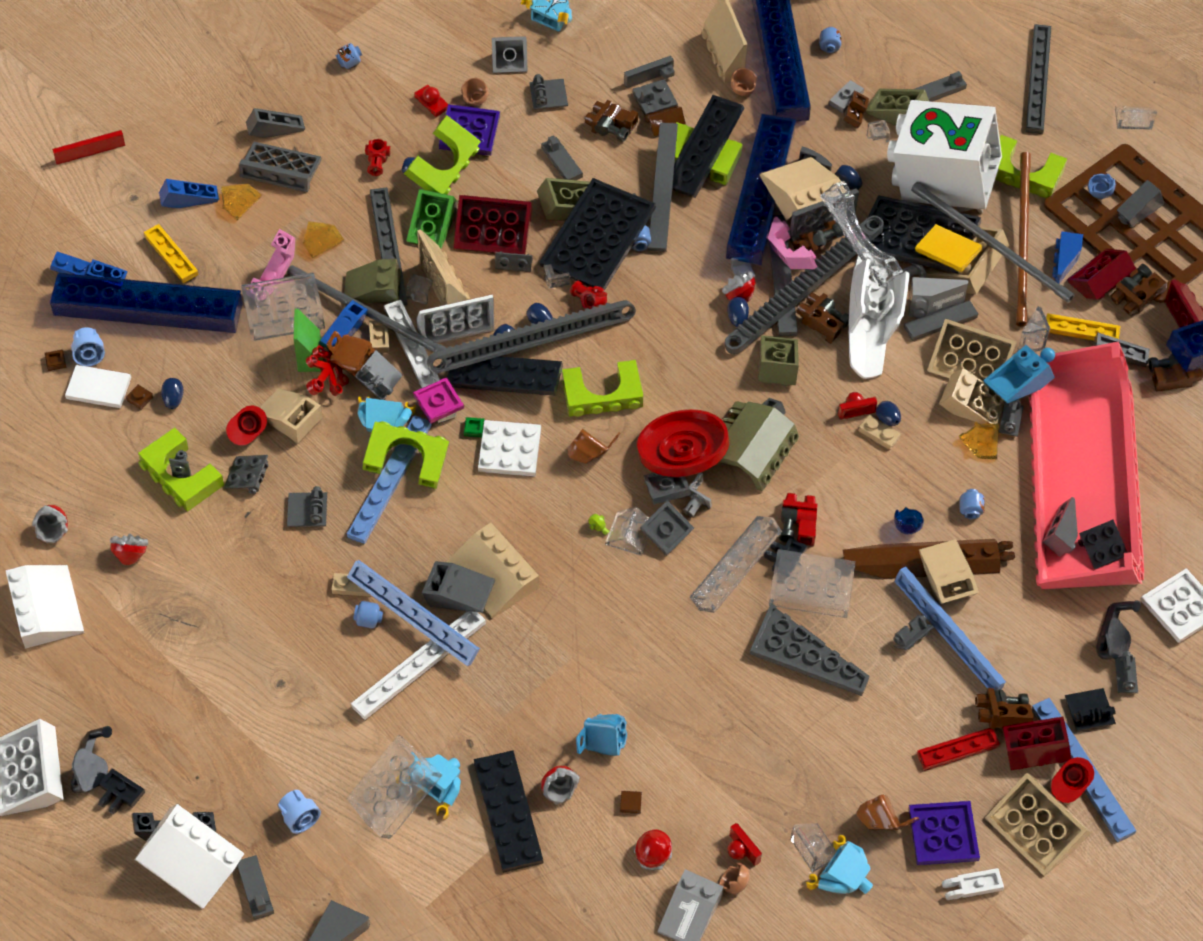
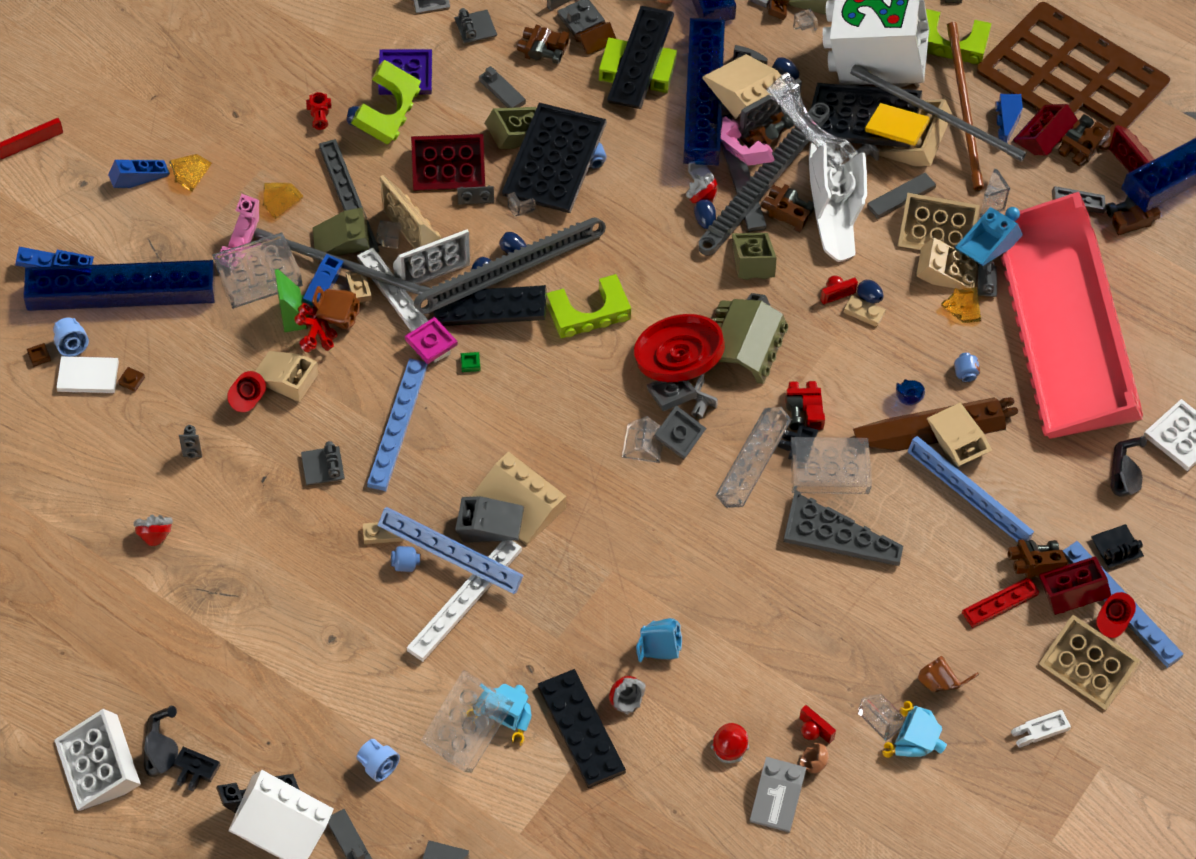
camera: 10 degrees left, 0 degrees up
(44, 603) = (79, 596): white slope -> none
(50, 523) = (70, 516): light grey hair -> none
(171, 253) = (133, 233): yellow plate -> none
(172, 392) = (164, 370): dark blue animal -> none
(186, 491) = (198, 465): lime arch -> none
(247, 472) = (255, 438): dark grey hinge -> none
(272, 123) = (208, 91): dark grey slope -> none
(278, 174) = (223, 140): dark grey fence -> none
(348, 56) = (270, 14): medium blue head -> none
(378, 375) = (367, 325): hinge -> none
(382, 410) = (379, 364): medium azure torso -> none
(386, 437) = (434, 388): lime arch -> none
(431, 99) = (361, 47): red tile -> none
(432, 215) = (387, 158): bright green slope -> none
(474, 91) = (403, 33): nougat hair -> none
(509, 448) = (509, 377): white plate -> none
(587, 447) = (587, 365): dark orange piece -> none
(589, 296) = (557, 217): red connector -> none
(597, 522) = (611, 437): lime piece -> none
(630, 802) = (698, 701): reddish brown tile -> none
(663, 186) = (608, 101): dark grey tile -> none
(906, 638) = (931, 504): dark grey hinge -> none
(934, 295) = (891, 171): light grey slope -> none
(944, 833) = (1003, 684): dark purple plate -> none
(1063, 529) = (1058, 379): dark grey slope -> none
(1080, 328) = (1037, 184): yellow plate -> none
(1101, 186) = (1029, 45): medium blue hair -> none
(1103, 544) = (1098, 387): black hinge -> none
(1126, 673) = (1144, 507): dark grey hinge -> none
(1140, 204) = (1070, 58): dark grey slope -> none

